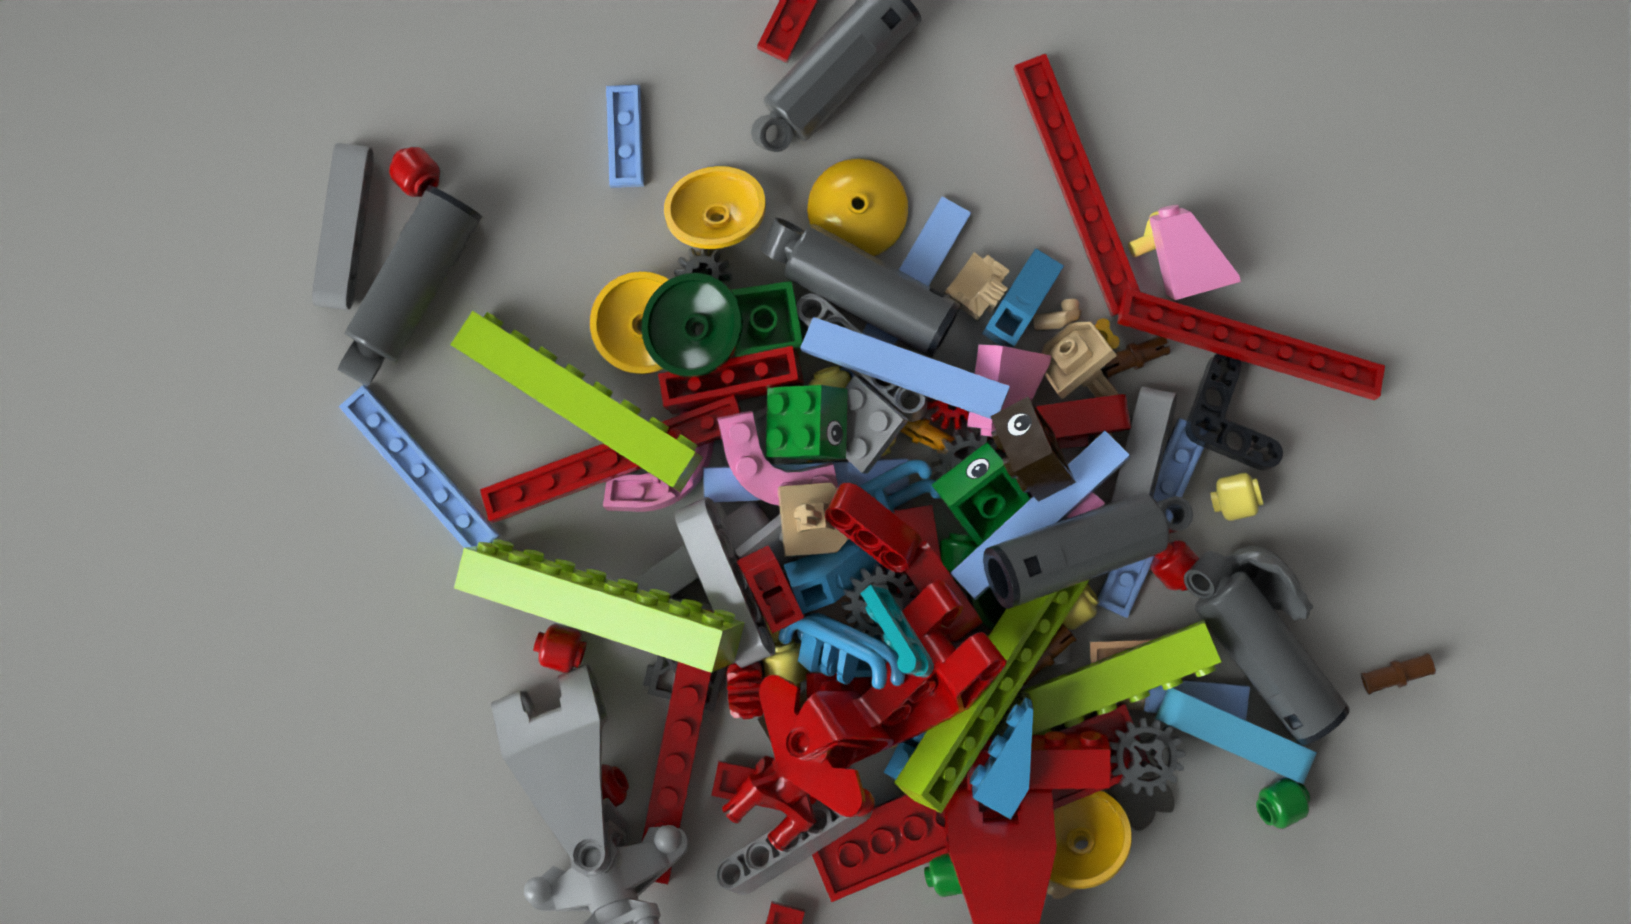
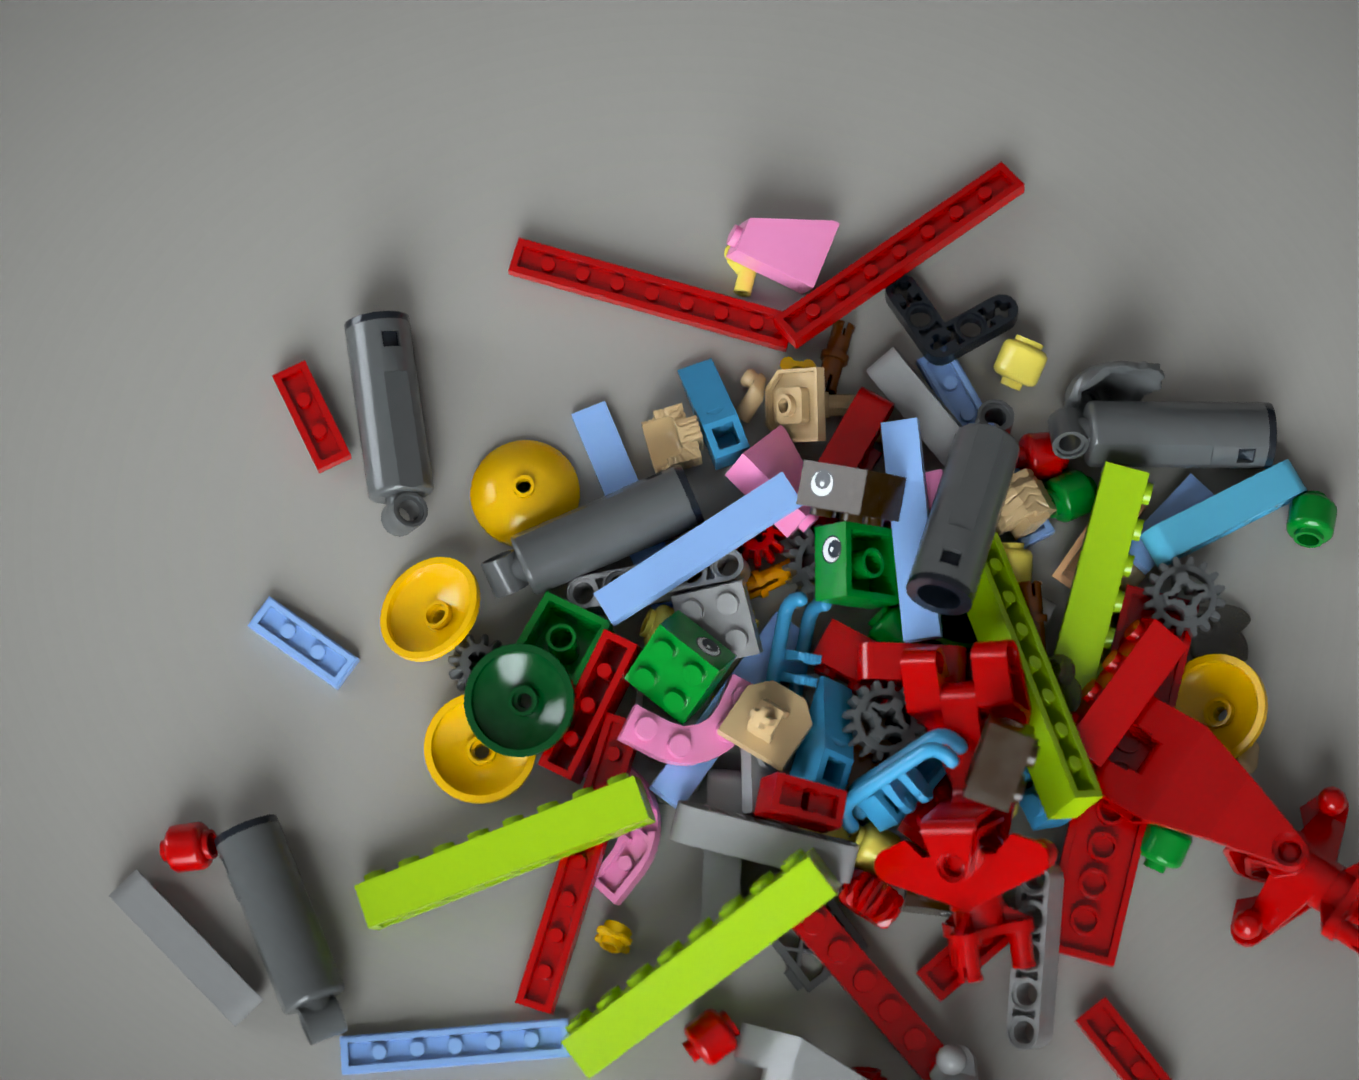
camera: 50 degrees left, 10 degrees down
(580, 524) = (614, 937): none -> yellow plate
(873, 527) = (814, 674): red beam -> none
(897, 632) = (921, 715): teal plate -> none
(902, 722) = (999, 762): none -> dark brown brick
(1006, 773) = (1108, 714): dark azure slope -> none
(1128, 585) = (1025, 505): none -> tan hair
(1161, 609) = (1072, 494): none -> green head
(1398, 673) = (1271, 344): reddish brown pin -> none

